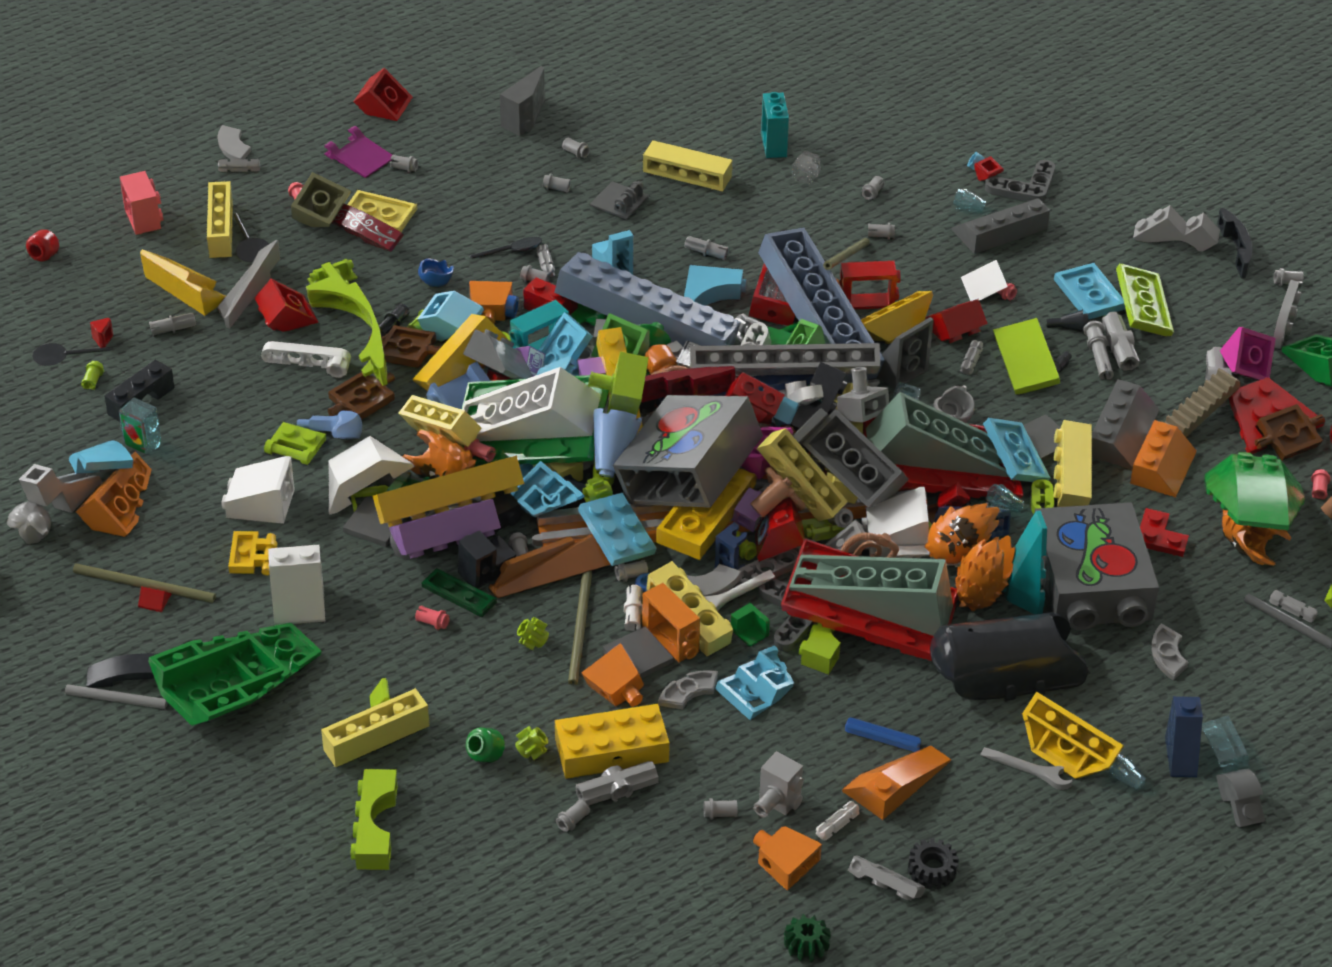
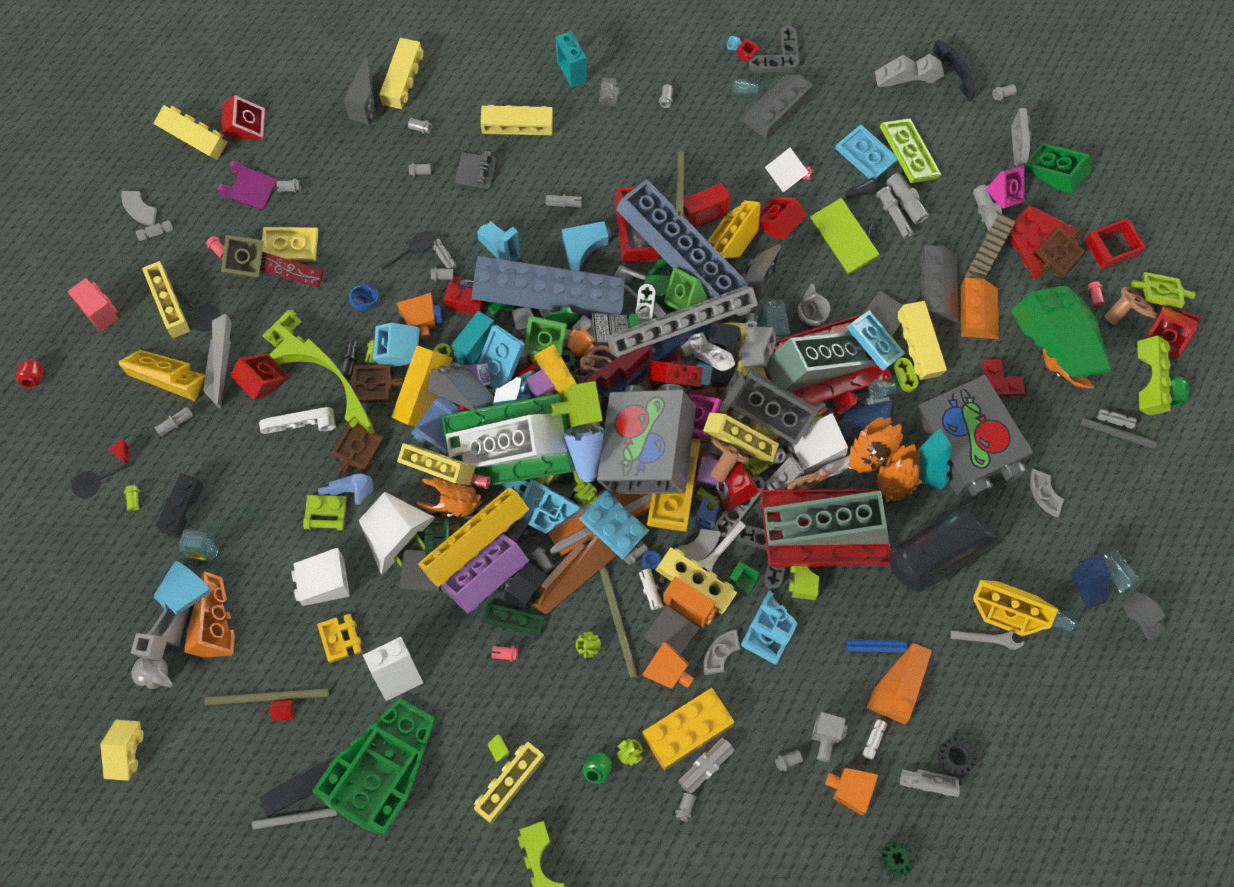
camera: 20 degrees left, 25 degrees up
(322, 93) = (190, 132): none -> light yellow brick
(577, 98) = (401, 73): none -> light yellow brick
(883, 231) = (689, 140): light grey pin -> none
(971, 357) = (804, 250): light grey axle -> none

